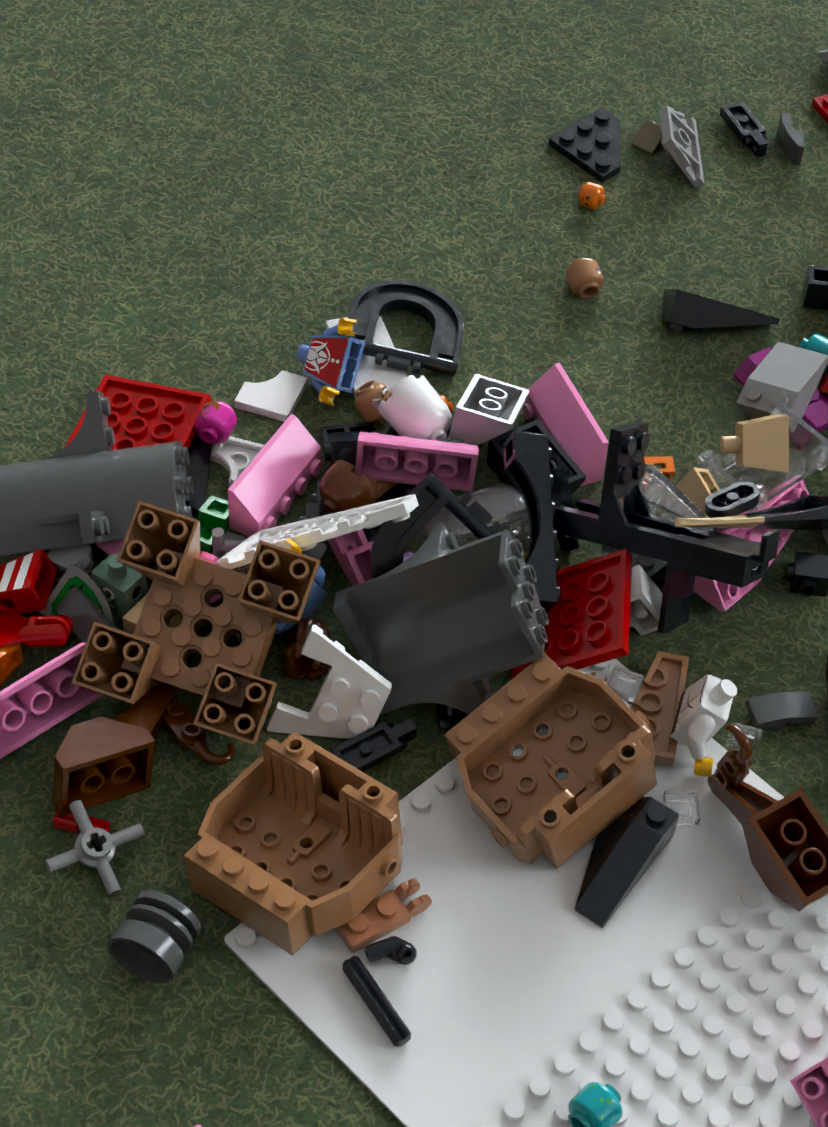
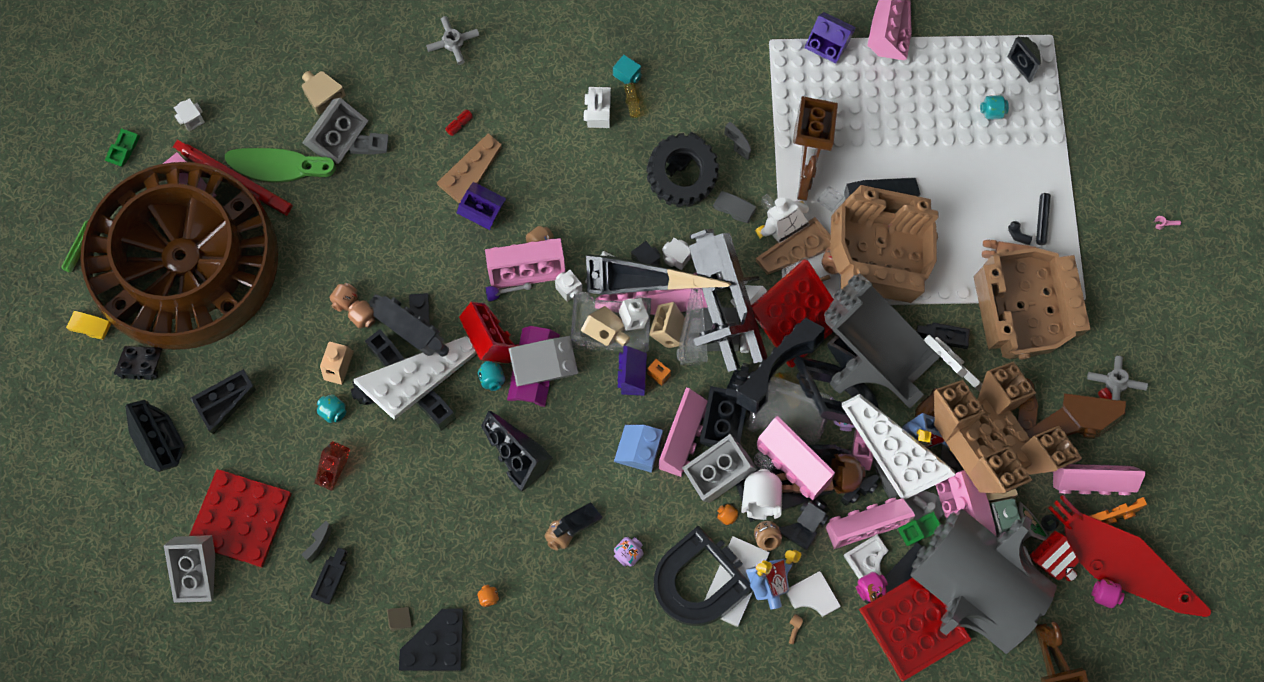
camera: 135 degrees left, 20 degrees up
(82, 612) = (1036, 511): dark grey slope -> none
(154, 936) = (1124, 310): dark grey wheel -> none
(267, 362) = (796, 621): none -> medium nougat hand
(502, 304) = (628, 551): none -> lavender head
(579, 291) = (578, 521): none -> black hinge
(599, 394) = (639, 446): none -> medium blue slope
(682, 142) = (389, 591): light grey wing -> none
(683, 437) = (633, 372): none -> dark purple slope
(732, 500) = (668, 294): black plate -> none
(748, 464) = (633, 314): none -> white brick
(782, 604) = (676, 253): none -> white brick

